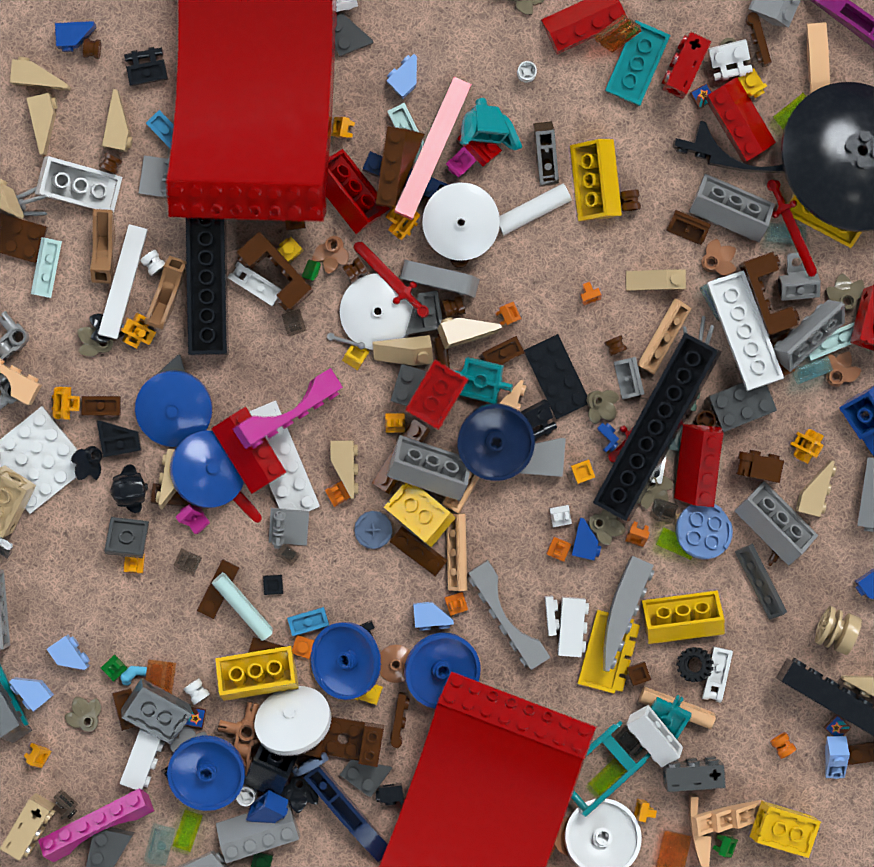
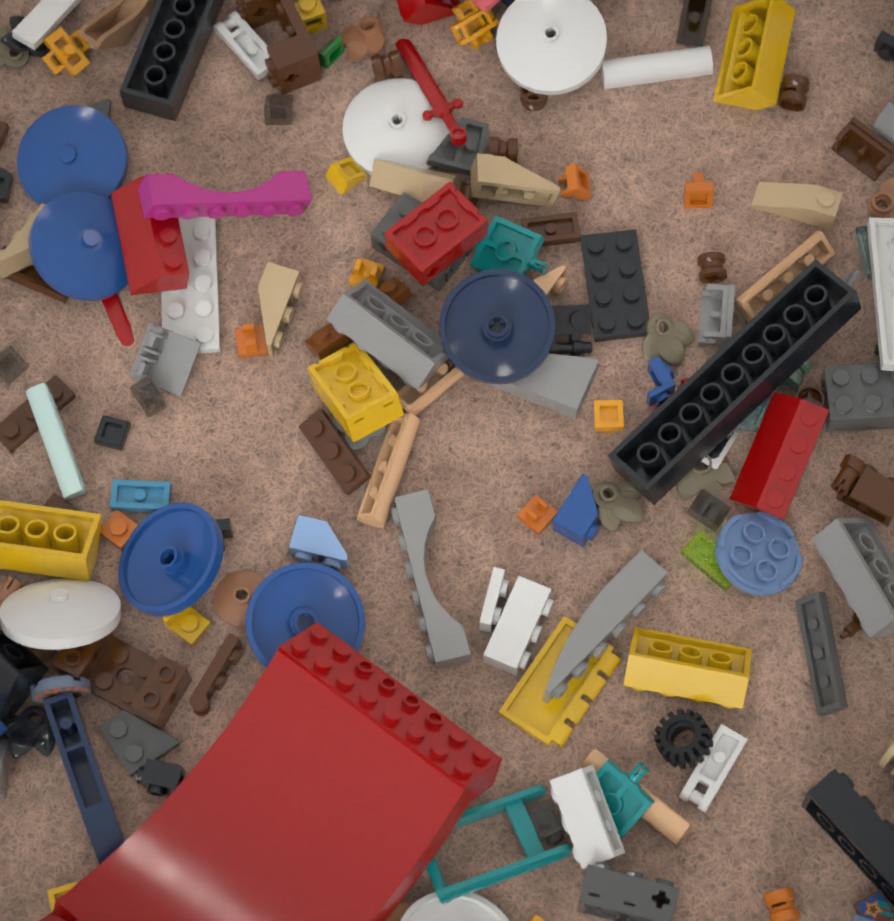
camera: 25 degrees right, 20 degrees down
(193, 517) = (37, 304): dark pink bracket -> none
(331, 337) = (322, 142): light grey hinge -> none
(373, 529) = (282, 404): sand blue tile -> none
(440, 278) = (501, 107): light grey beam -> none
(456, 603) = (361, 542): orange tile -> none
(560, 516) = (555, 470): white tile -> none
(607, 776) = (496, 859): clear neon green plate -> none
(638, 536) = (658, 530): orange tile -> none
(638, 673) = (594, 723): reddish brown tile -> none

